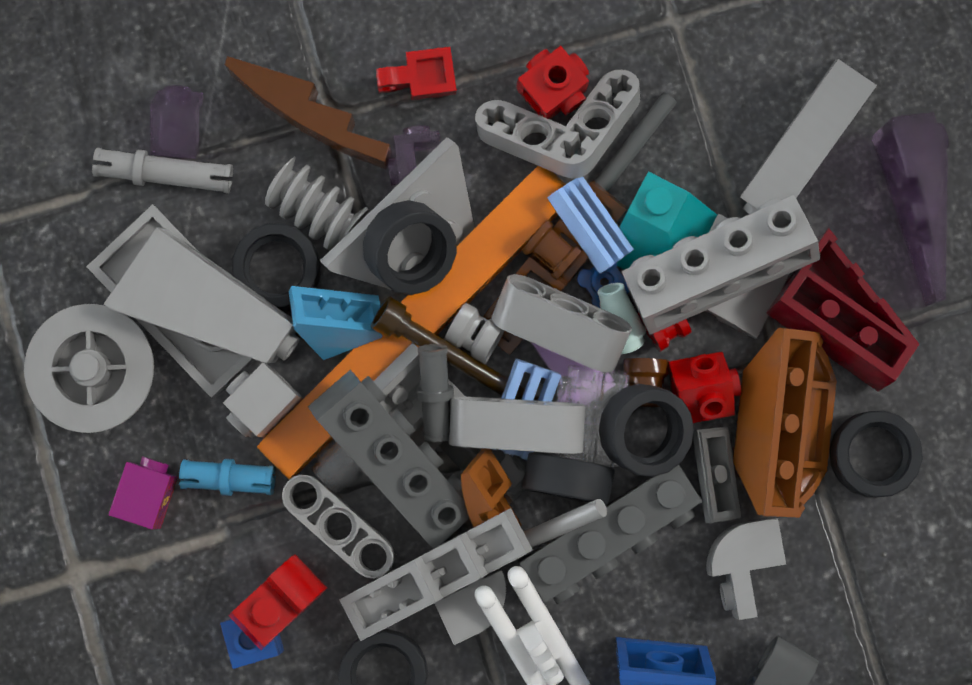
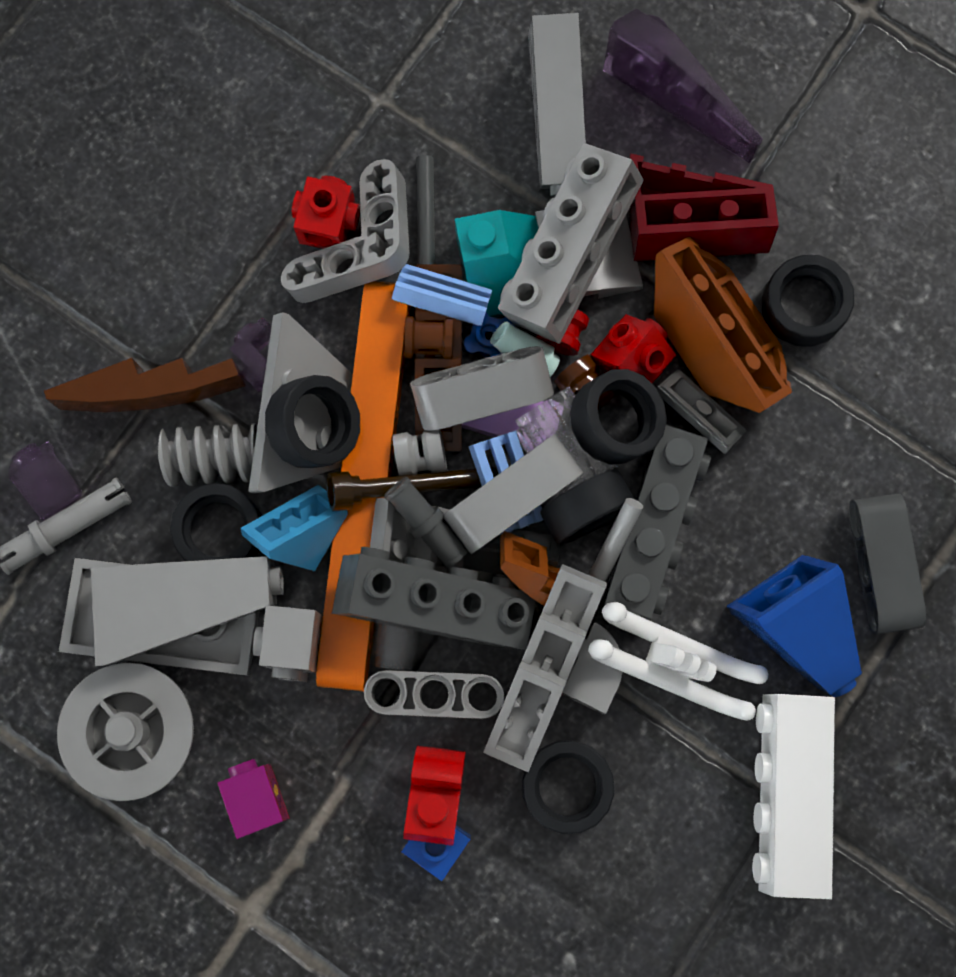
camera: 35 degrees left, 5 degrees down
(227, 477) = (311, 730): dark azure pin -> none
(426, 73) = (217, 285): red plate -> none
(735, 553) = (767, 459): light grey brick -> none

